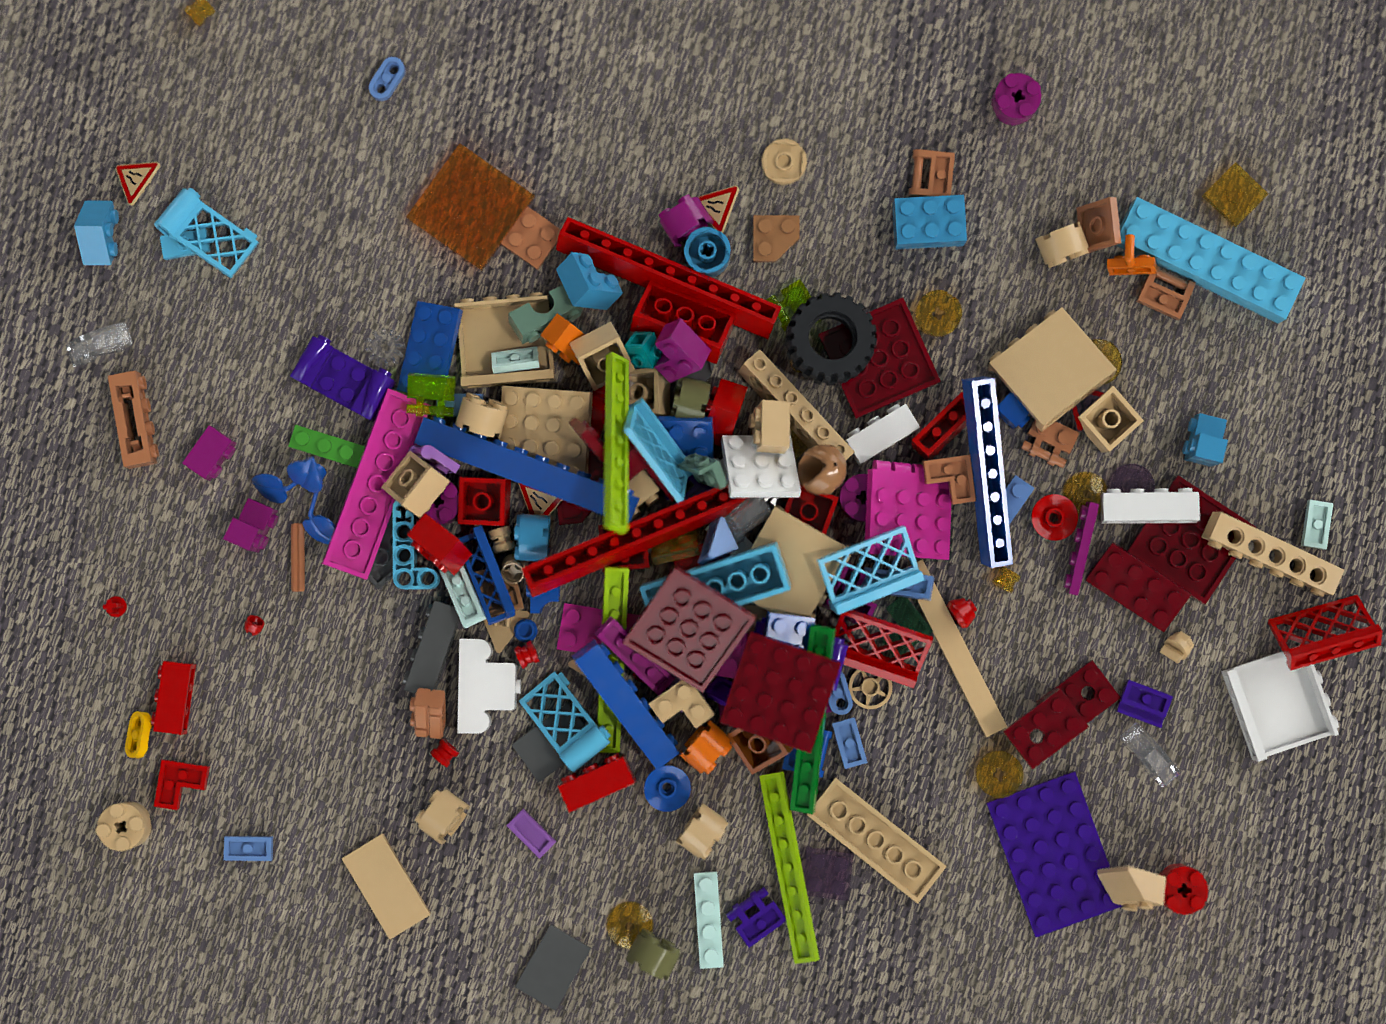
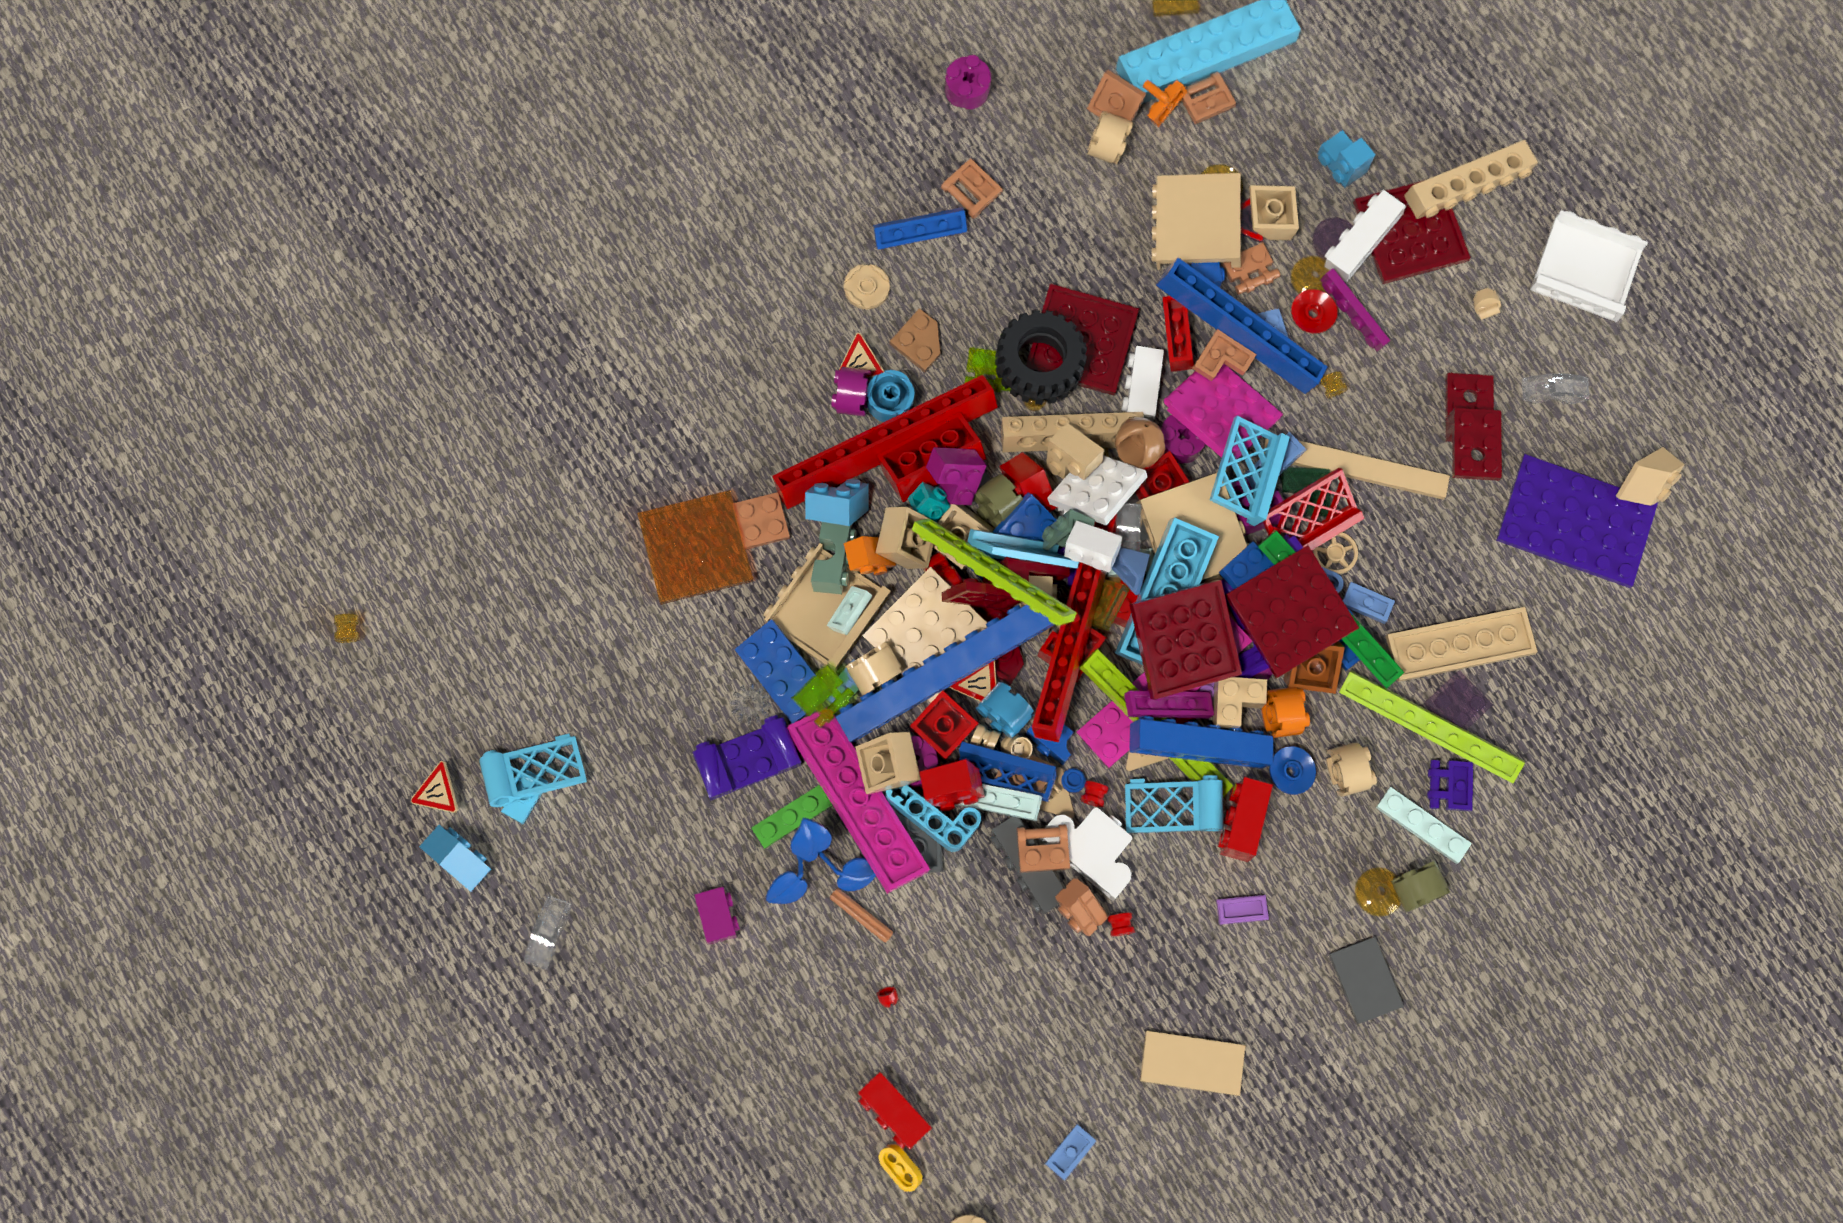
camera: 60 degrees left, 10 degrees down
(115, 606) = (775, 1101): red piece -> none
(141, 406) = (598, 936): nougat brick -> none
(175, 776) = (960, 1166): red plate -> none
(252, 526) = (806, 928): magenta brick -> none
(385, 78) = (534, 529): medium blue plate -> none
(435, 458) = (876, 729): medium lavender plate -> none
(442, 654) = (1043, 856): none -> nougat plate
(442, 815) = (1174, 965): tan brick -> none
(538, 751) = (1183, 848): dark grey tile -> none
(701, 501) = (1093, 546): none -> white brick
(864, 162) = (920, 228): none -> blue plate
(929, 222) = (1008, 218): dark azure brick -> none
(945, 302) = (1079, 257): clear yellow plate -> none
(962, 611) = (1332, 436): red cone -> none
(1009, 783) = (1494, 507): clear yellow plate -> none
(1138, 586) = (1417, 294): dark red plate -> none
(1144, 703) = (1511, 362): dark purple plate -> none
(1195, 891) = (1686, 438): red brick -> none
(1317, 524) = (1472, 133): light aqua plate -> none
(1331, 645) = (1576, 191): red fence -> none

